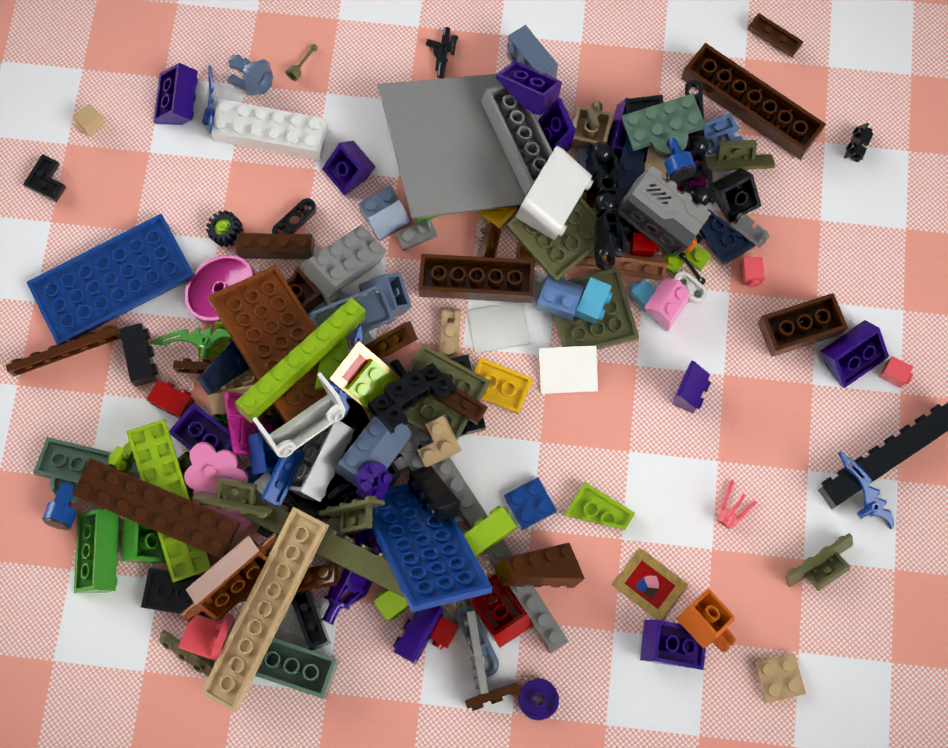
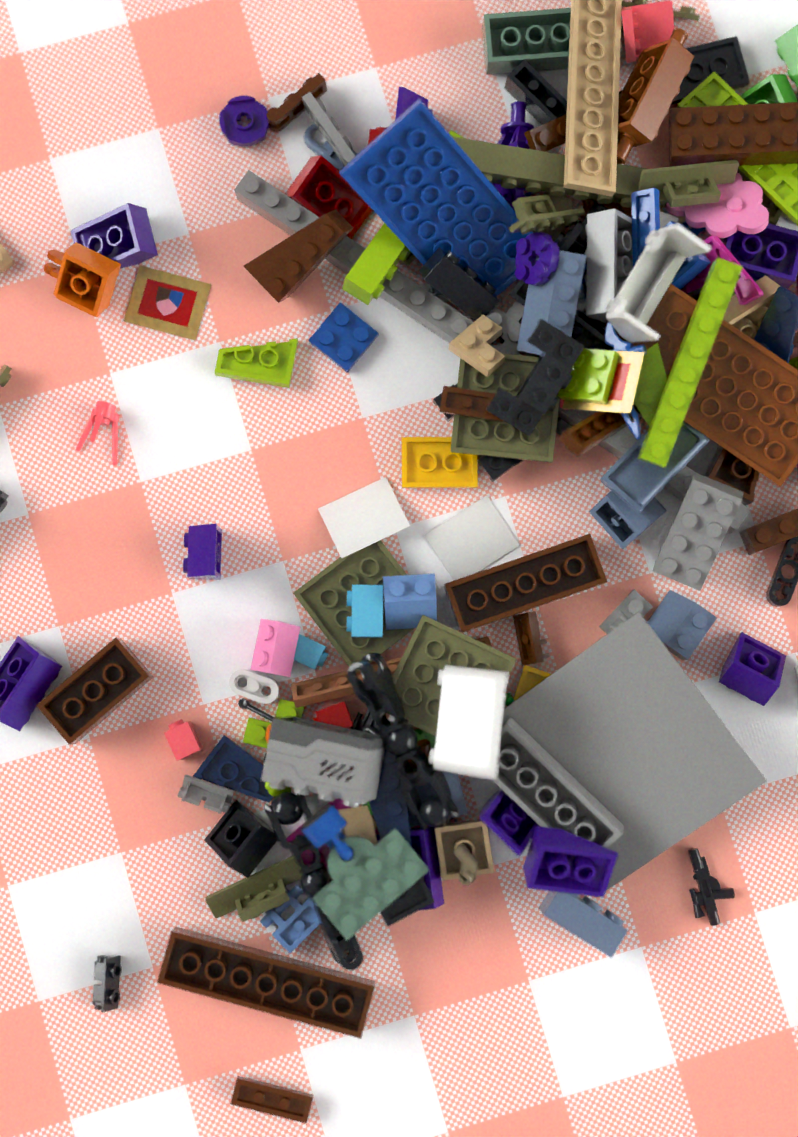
camera: 150 degrees right, 10 degrees up
(450, 333) = (526, 502): tan plate -> none

